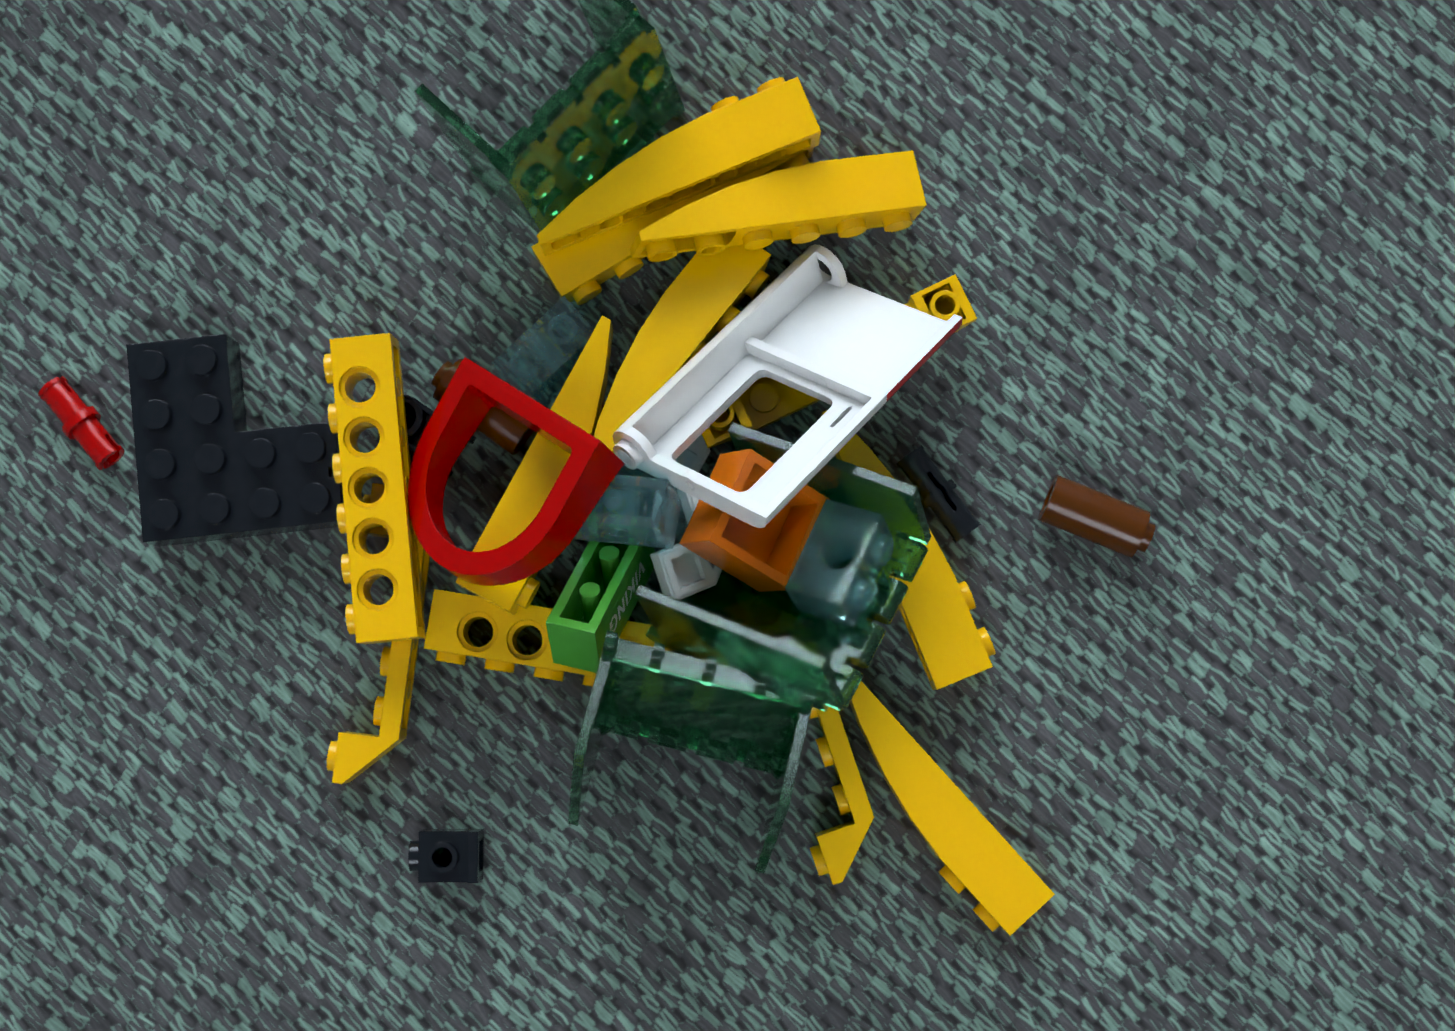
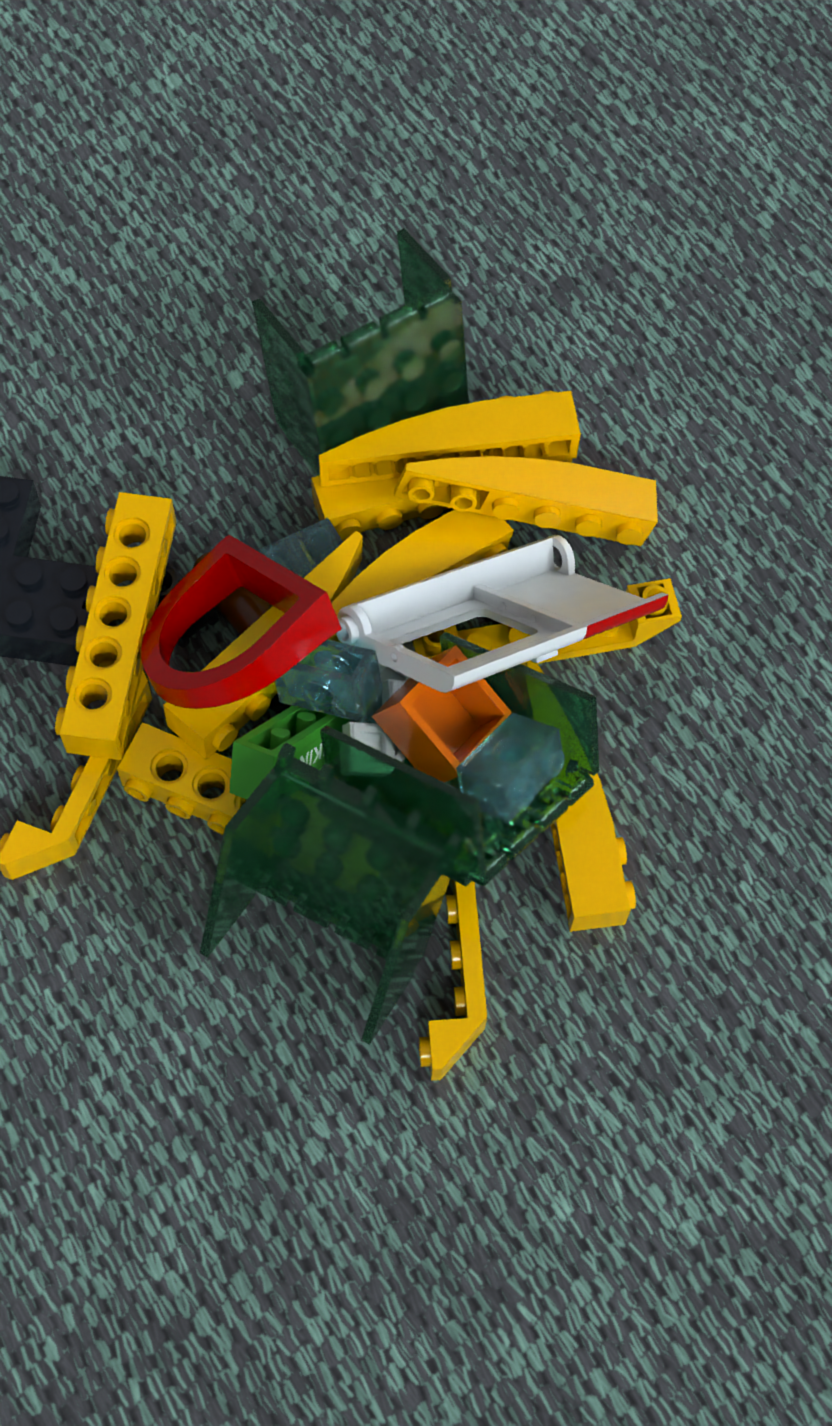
camera: 10 degrees right, 20 degrees down
(466, 851) = (89, 973): black brick -> none
(938, 494) = (616, 765): black pin -> none
(950, 824) = (558, 1048): yellow slope -> none
(1096, 517) = (754, 813): reddish brown brick -> none

